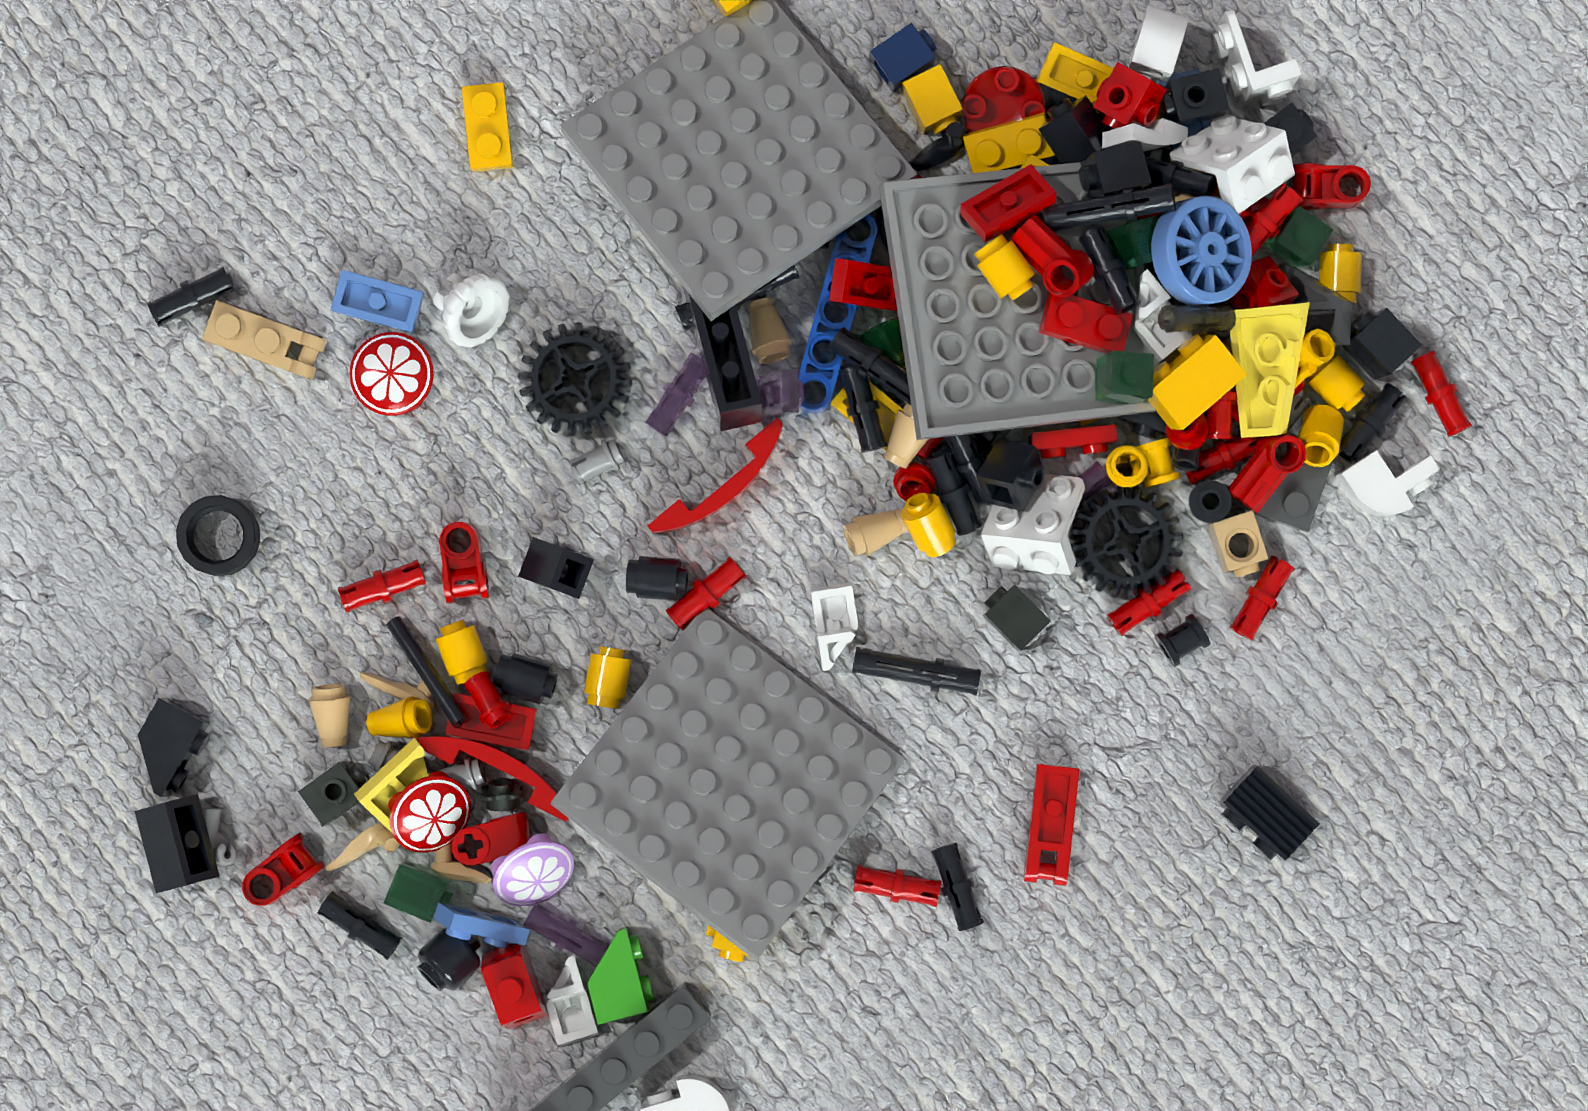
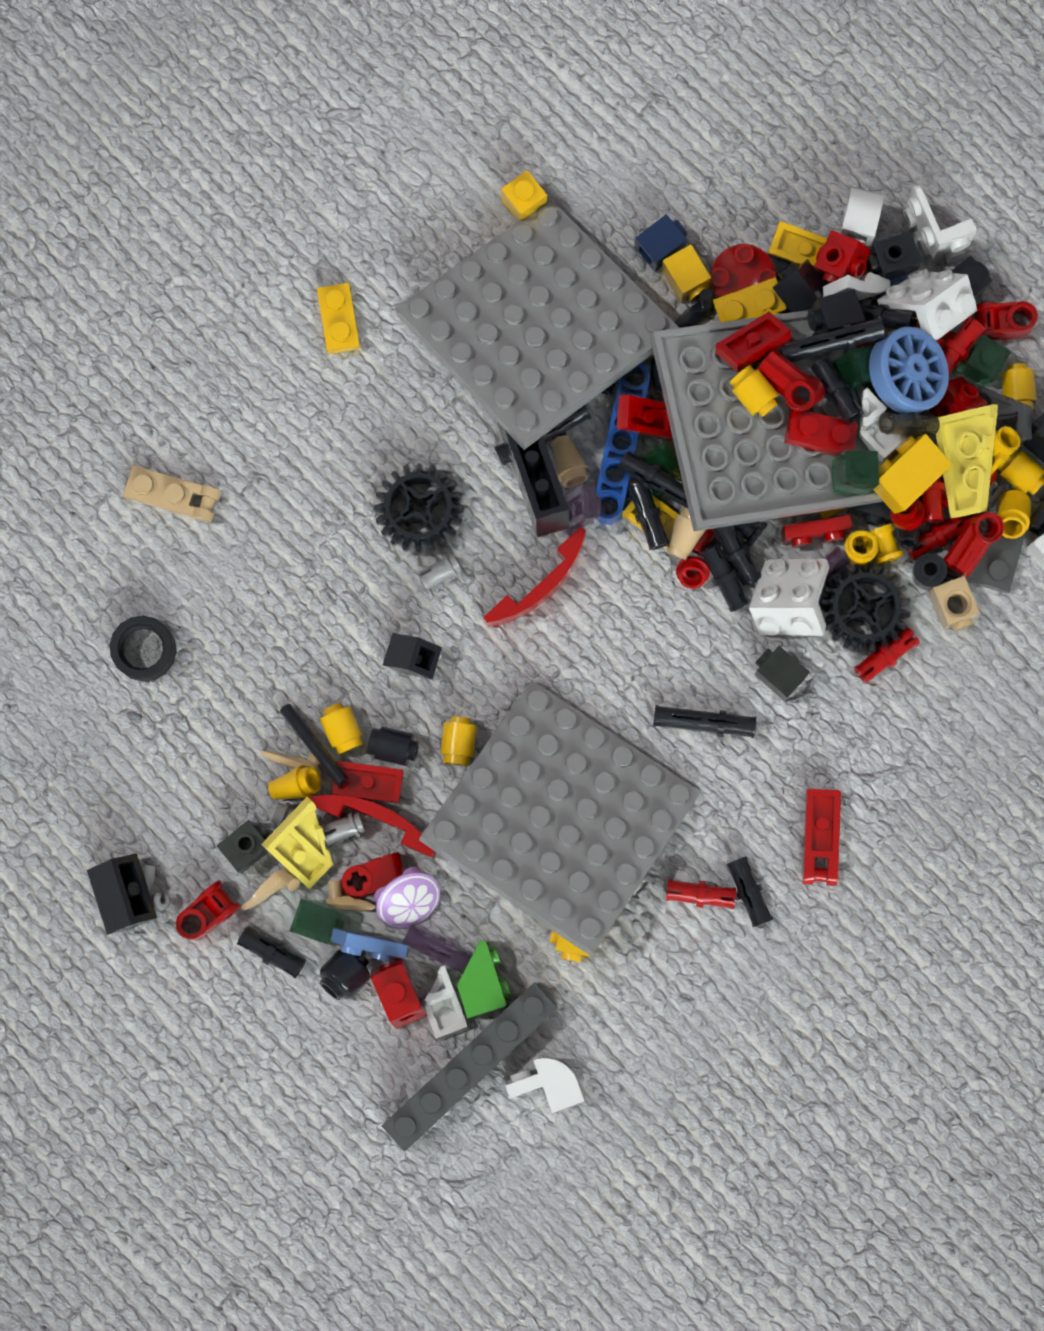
camera: 10 degrees right, 5 degrees down
(168, 743) = (111, 814): black slope -> none
(190, 297) = (112, 463): black pin -> none
(331, 713) = (239, 784): tan cone -> none
(377, 301) = (259, 458): medium blue plate -> none
(381, 586) = (274, 680): red pin -> none
(391, 374) = (273, 514): dish -> none
(429, 813) = (322, 856): dish -> none
(463, 565) = (338, 659): red piece -> none
(473, 308) = (335, 457): white hair -> none
(488, 700) = (368, 769): red pin -> none
(501, 794) = (379, 839): pearl dark grey plate -> none
(656, 578) = (492, 660): black brick -> none
(677, 395) = (500, 516): clear purple pin -> none
(706, 593) = (533, 669): red pin -> none
(834, 620) = (636, 685): white slope -> none
(873, 531) = (663, 612): tan cone -> none
(929, 524) = (706, 603): yellow brick -> none
(1011, 474) = (769, 558): black brick -> none
(1182, 640) = (915, 683): black bush -> none
(1262, 598) = (976, 646): red pin -> none
(1268, 814) = (995, 817): black brick -> none

